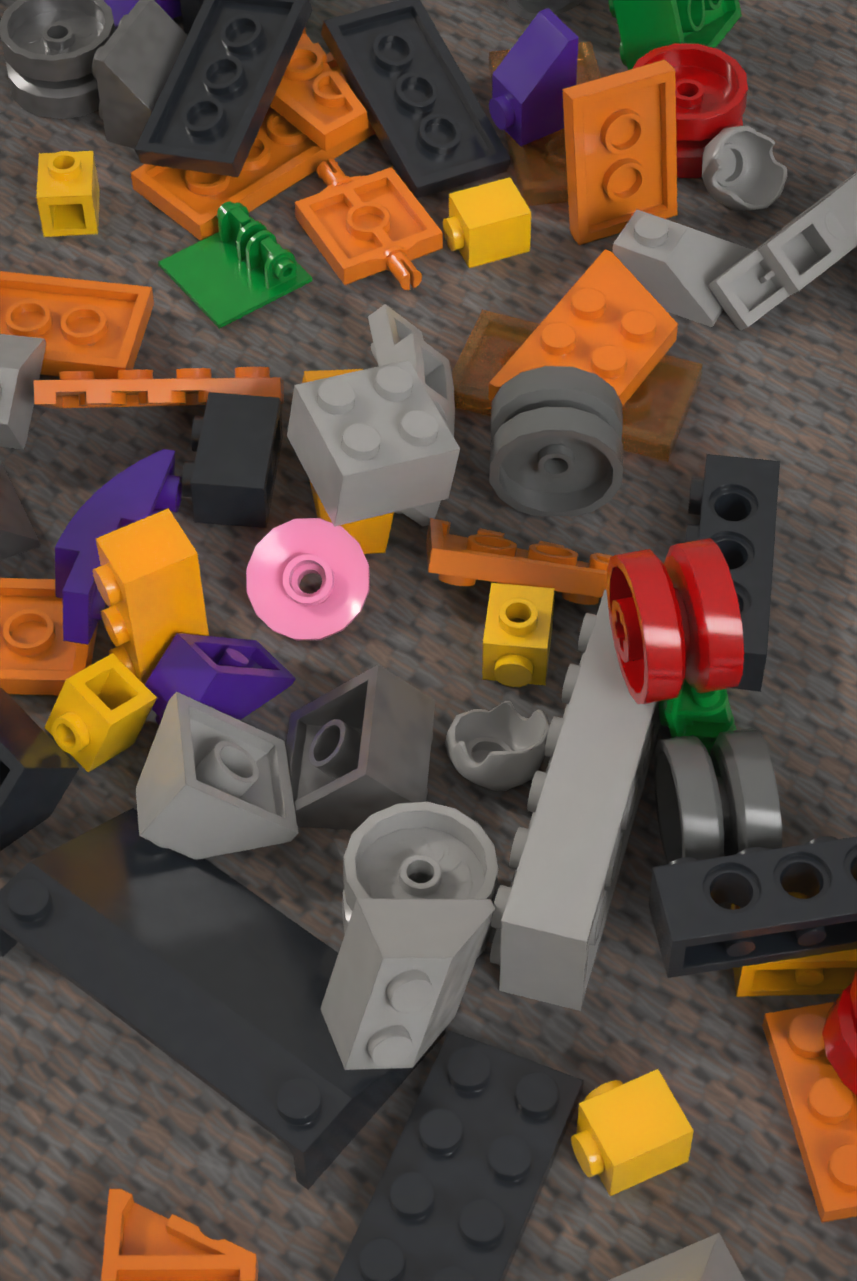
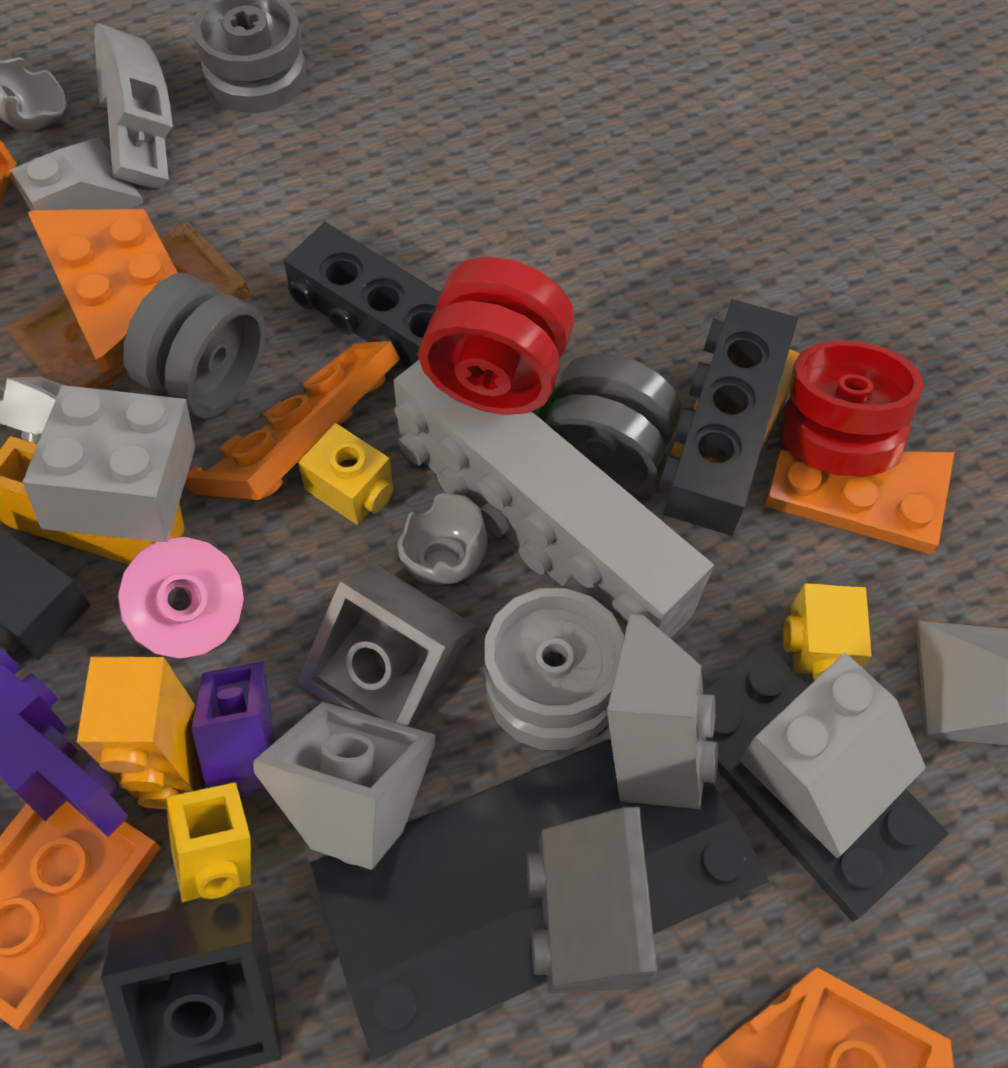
camera: 65 degrees left, 10 degrees up
(184, 990) = (592, 904): none -> flat silver slope
(475, 1168) = (837, 754): none -> light grey slope

